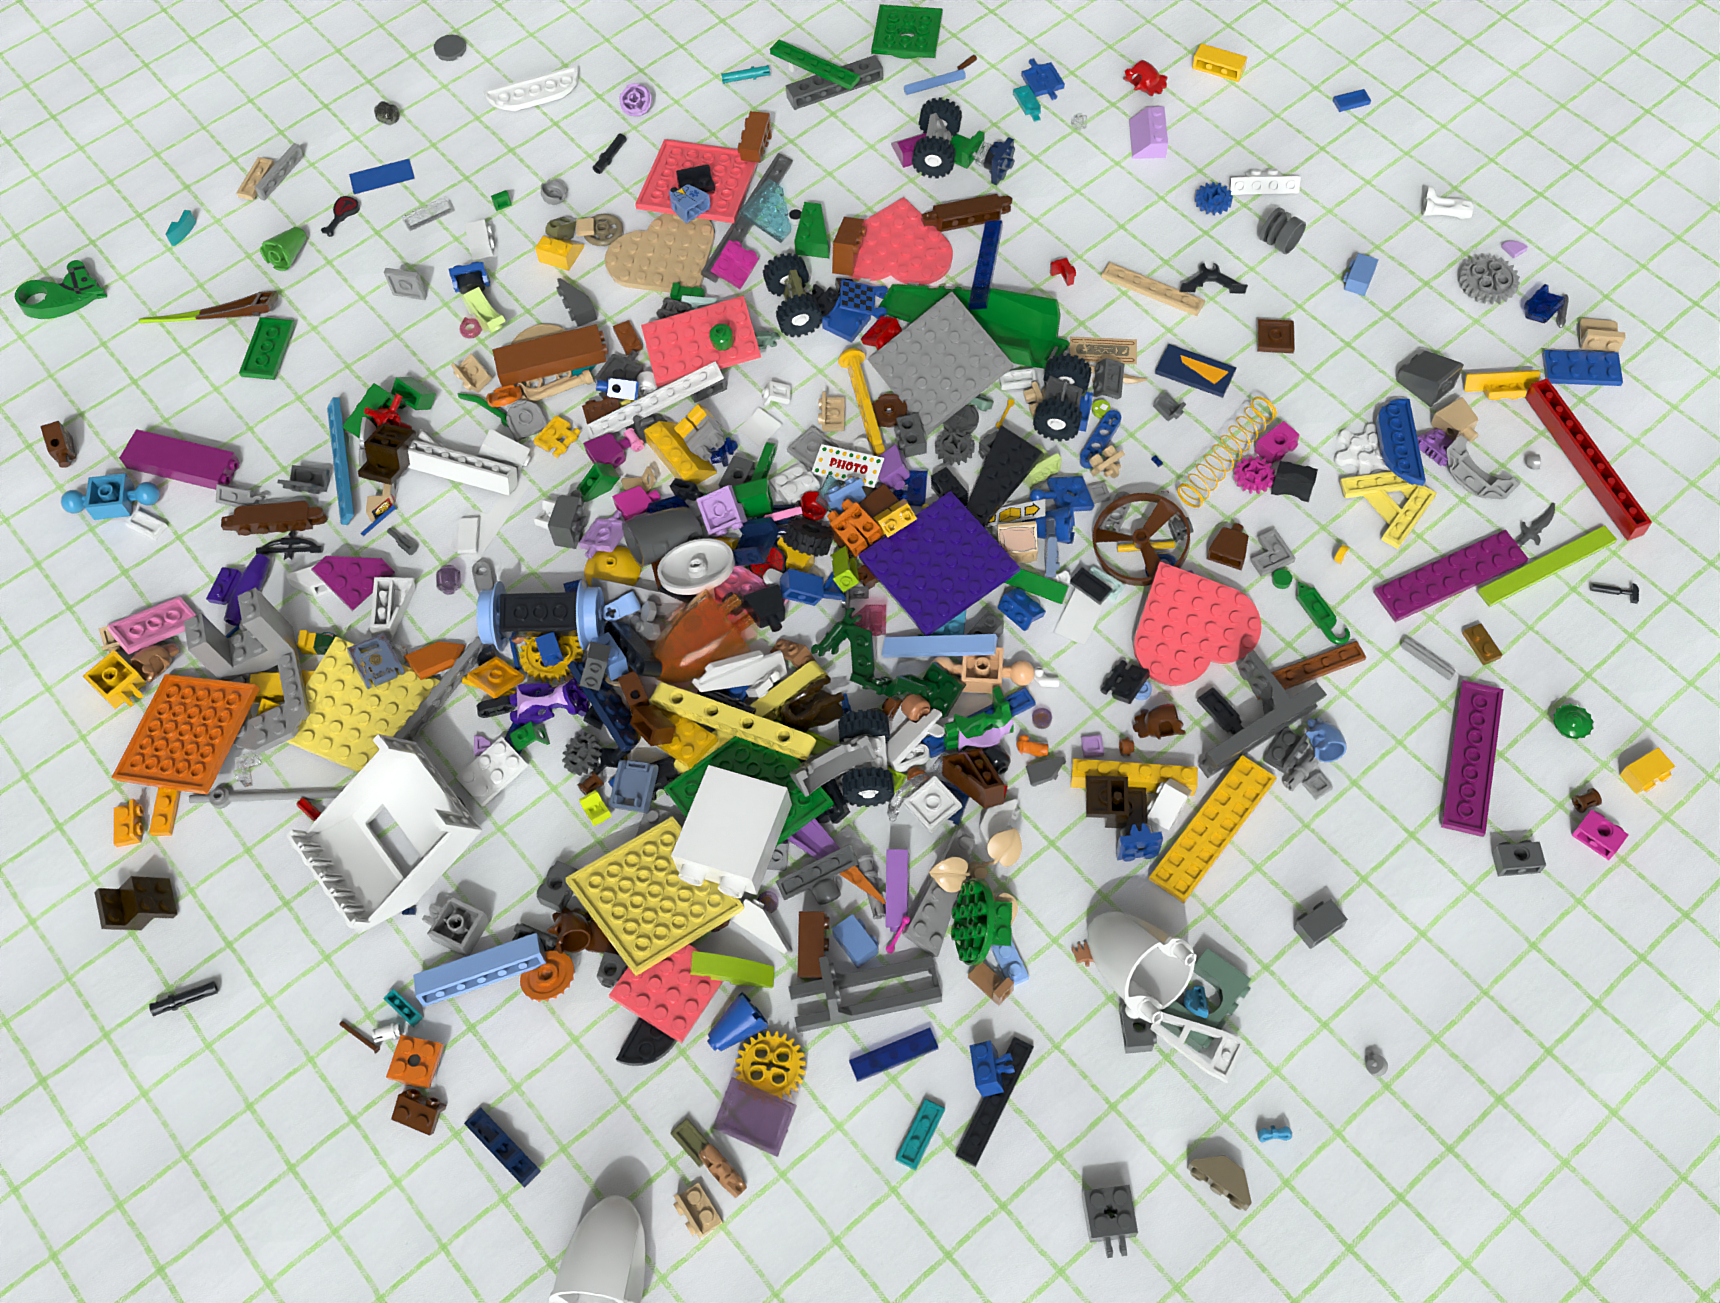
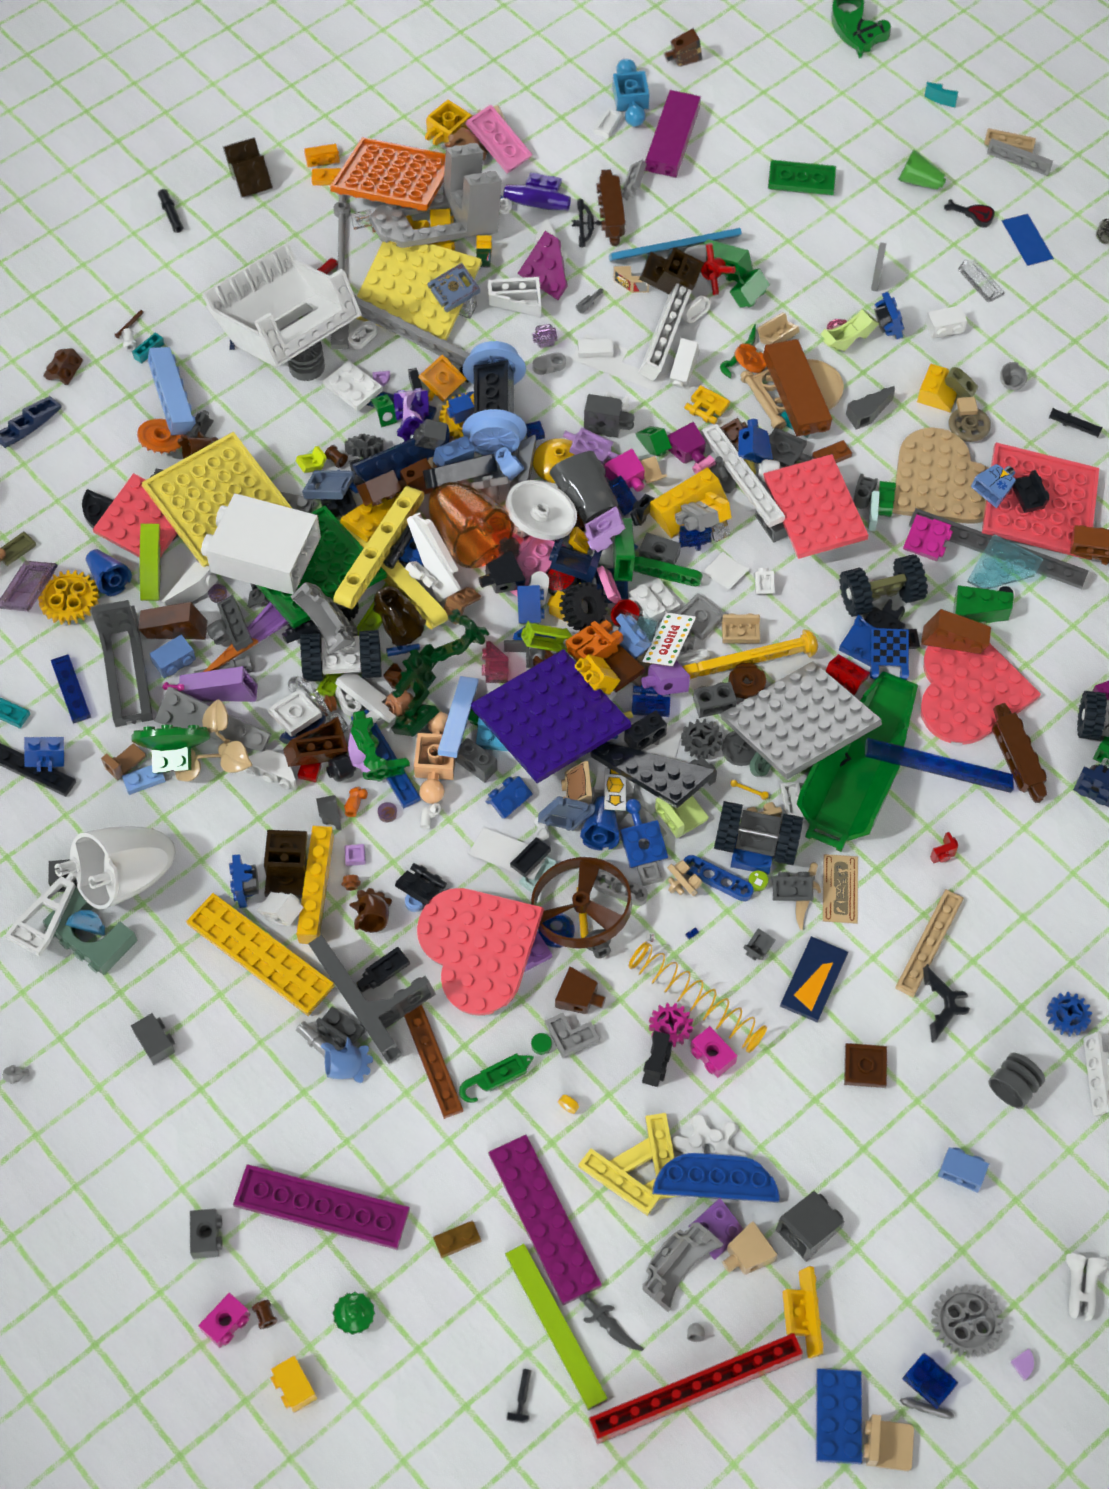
camera: 85 degrees right, 0 degrees up
(245, 307) = (845, 147): reddish brown plate -> none
(307, 479) = (649, 224): dark grey bracket -> none
(378, 520) = (613, 282): blue piece -> none
(415, 1061) = (99, 357): orange piece -> none
(434, 658) = (462, 331): orange tile -> none
(455, 913) = (210, 372): light grey hinge -> none
(501, 200) = (999, 335): green tile -> none
(525, 419) = (725, 377): light grey tile -> none
(556, 898) = (250, 438): dark grey brick -> none
(721, 337) = (807, 514): green head -> none
(765, 338) = (828, 565): sand green plate -> none
(1039, 586) = (538, 801): green tile -> none
(1317, 785) = (300, 1055): light grey tile -> none
(1428, 658) = (440, 1179): light grey axle -> none

